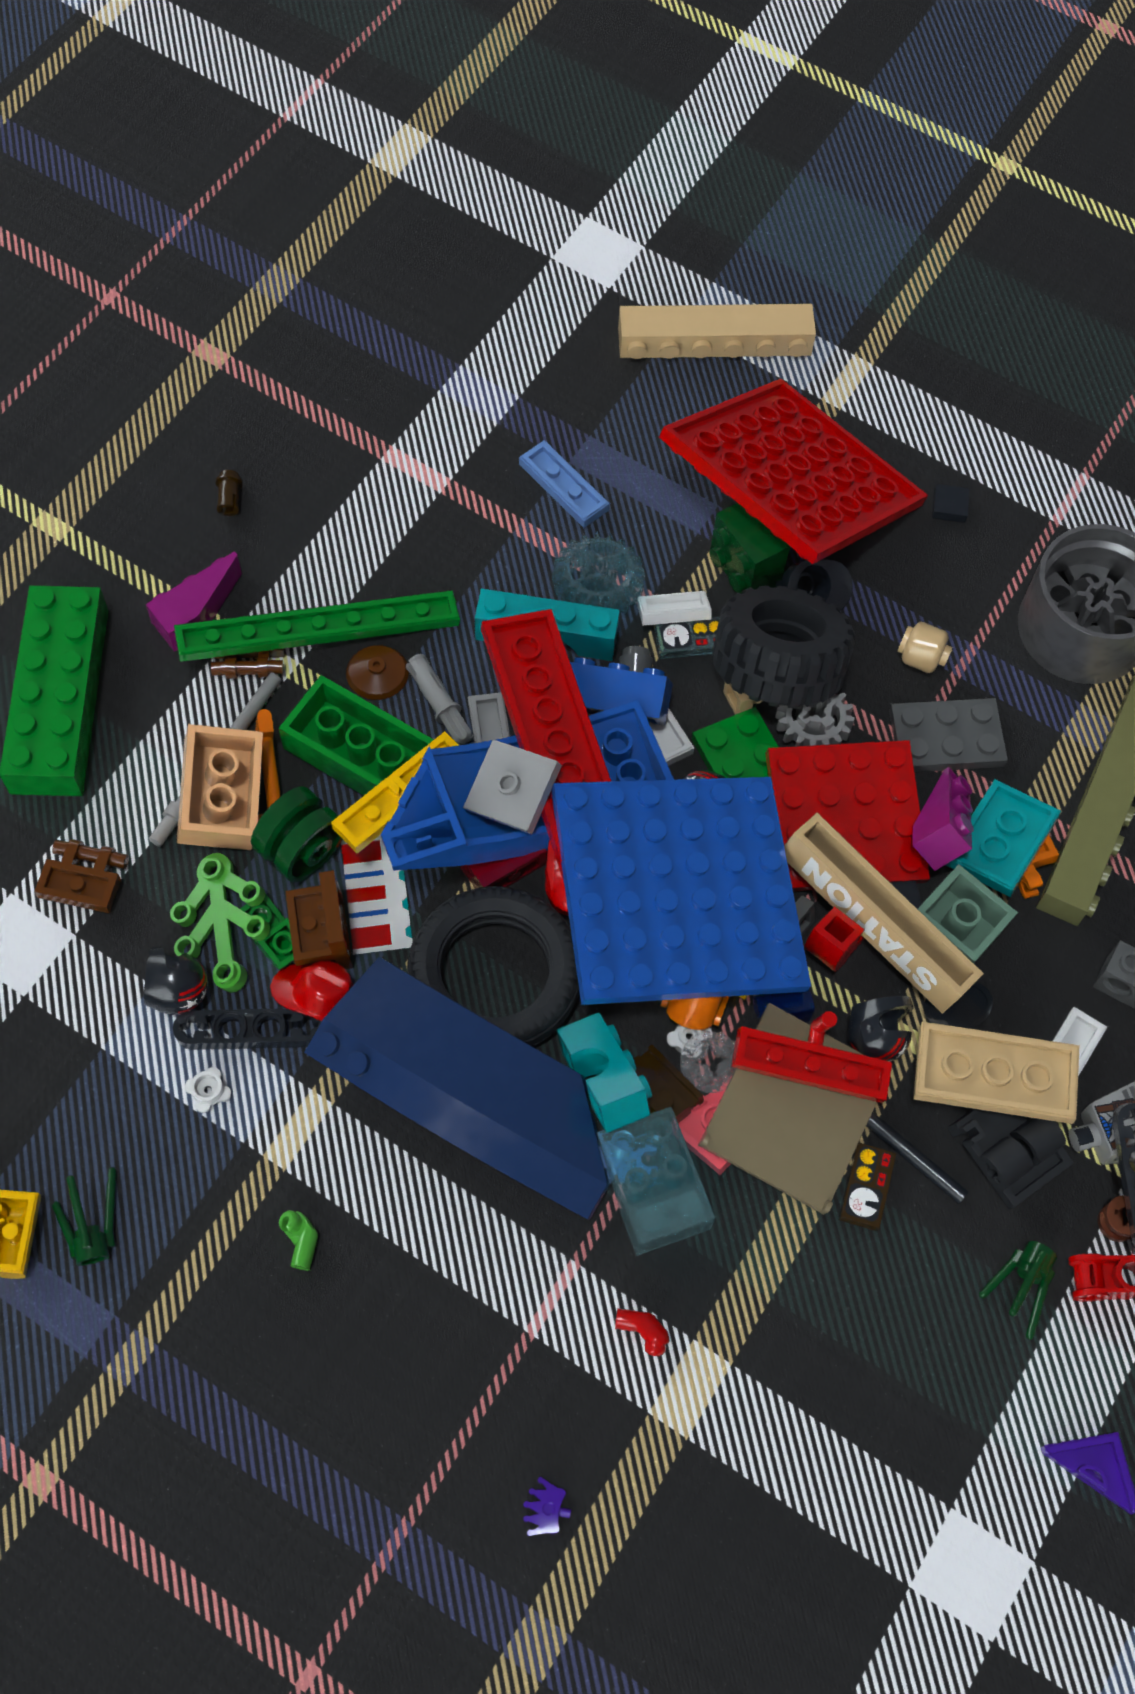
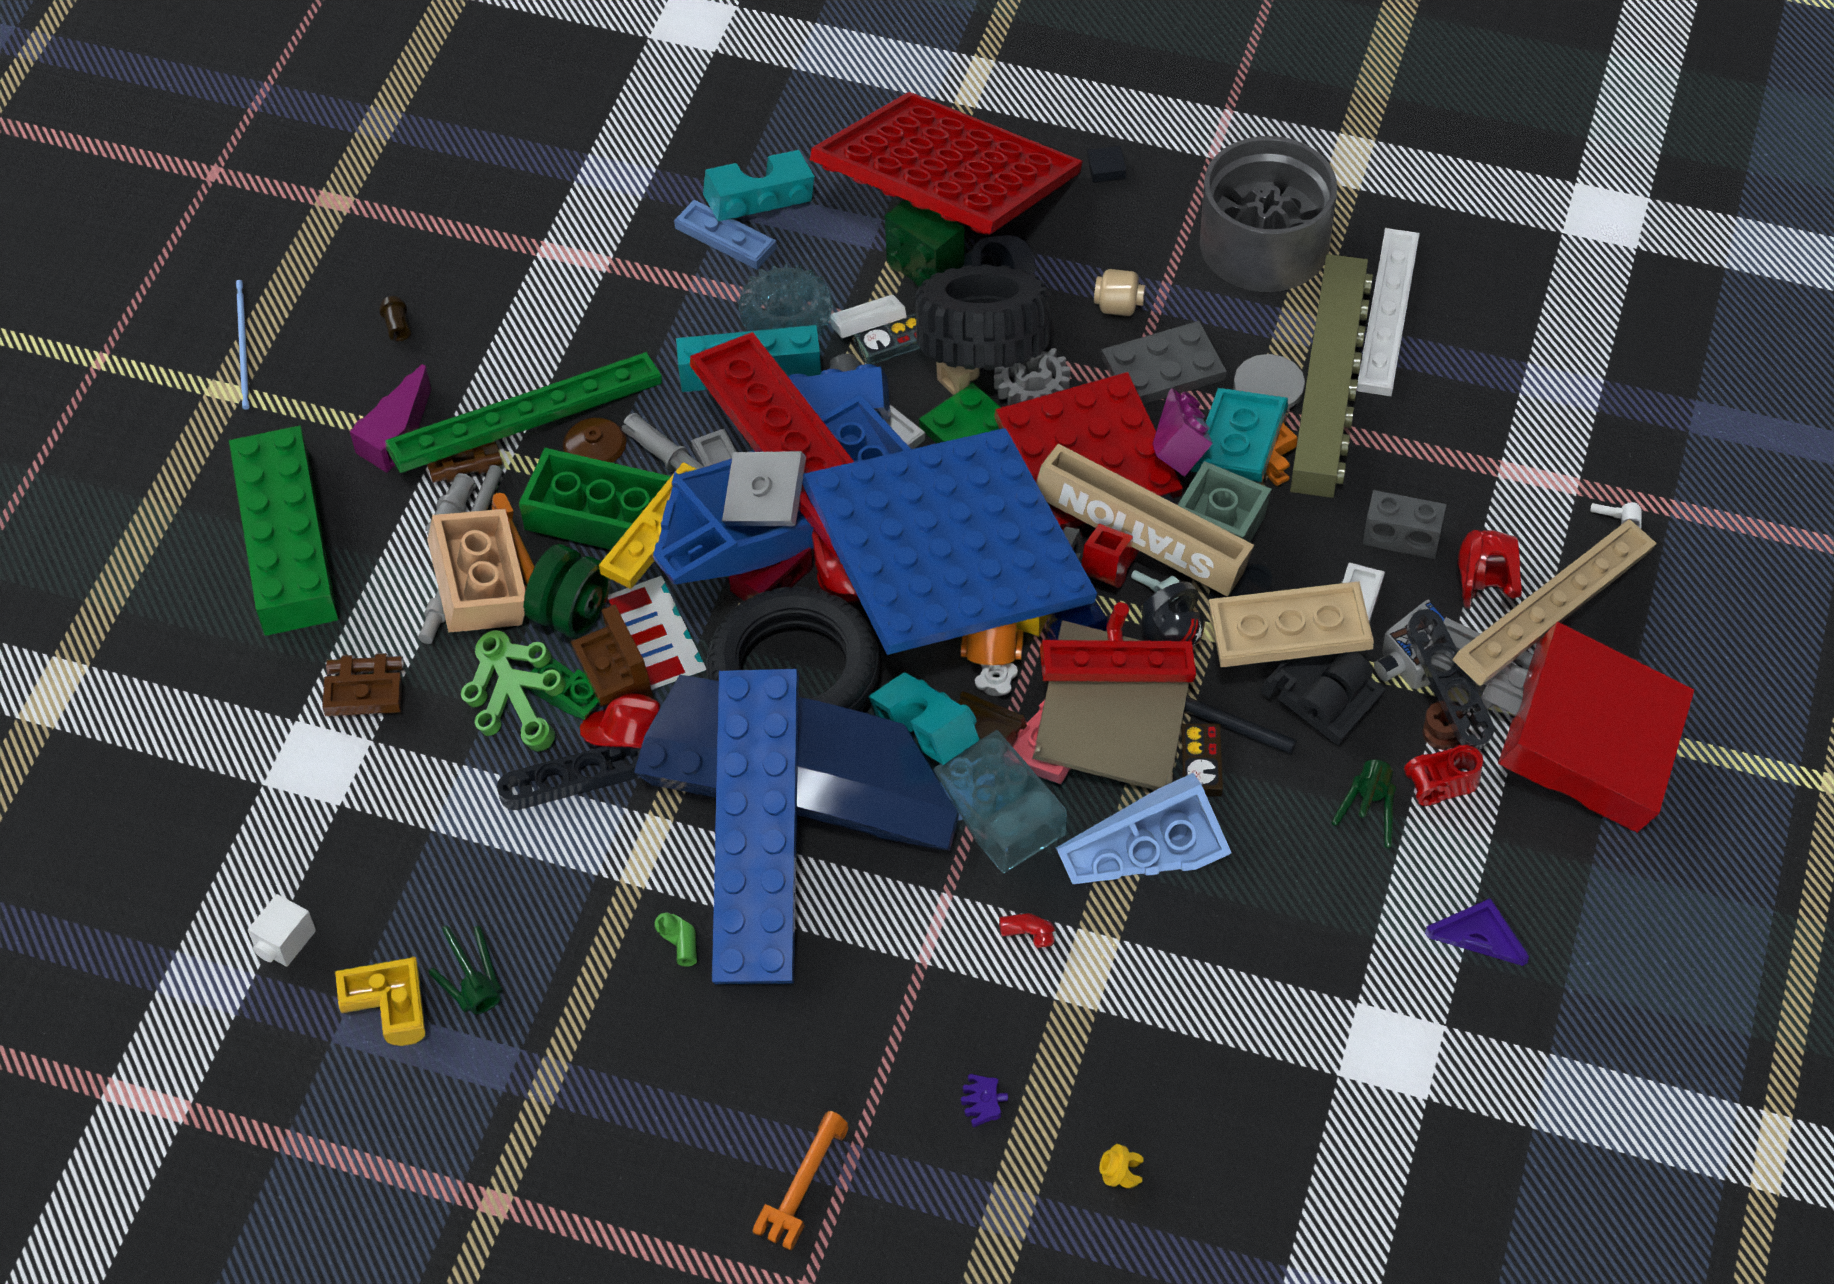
camera: 10 degrees left, 10 degrees down
(80, 485) = (242, 344): none -> light blue piece
(173, 983) = (486, 749): black helmet -> none
(204, 1079) = (548, 826): white plate -> none
(222, 704) = (456, 496): none -> light grey pin
(310, 1587) = (830, 1127): none -> orange hinge
(401, 1153) = (756, 827): none -> blue plate
(584, 448) = (737, 195): none -> teal arch
(655, 1632) = (1115, 1167): none -> yellow plate
(700, 1074) = (1017, 701): clear gear -> none
(716, 331) = (832, 64): tan brick -> none
(799, 1259) = (1153, 835): none -> light blue wedge
(881, 986) = (1153, 583): none -> light aqua hand
(1049, 779) = (1271, 376): none -> light grey tile

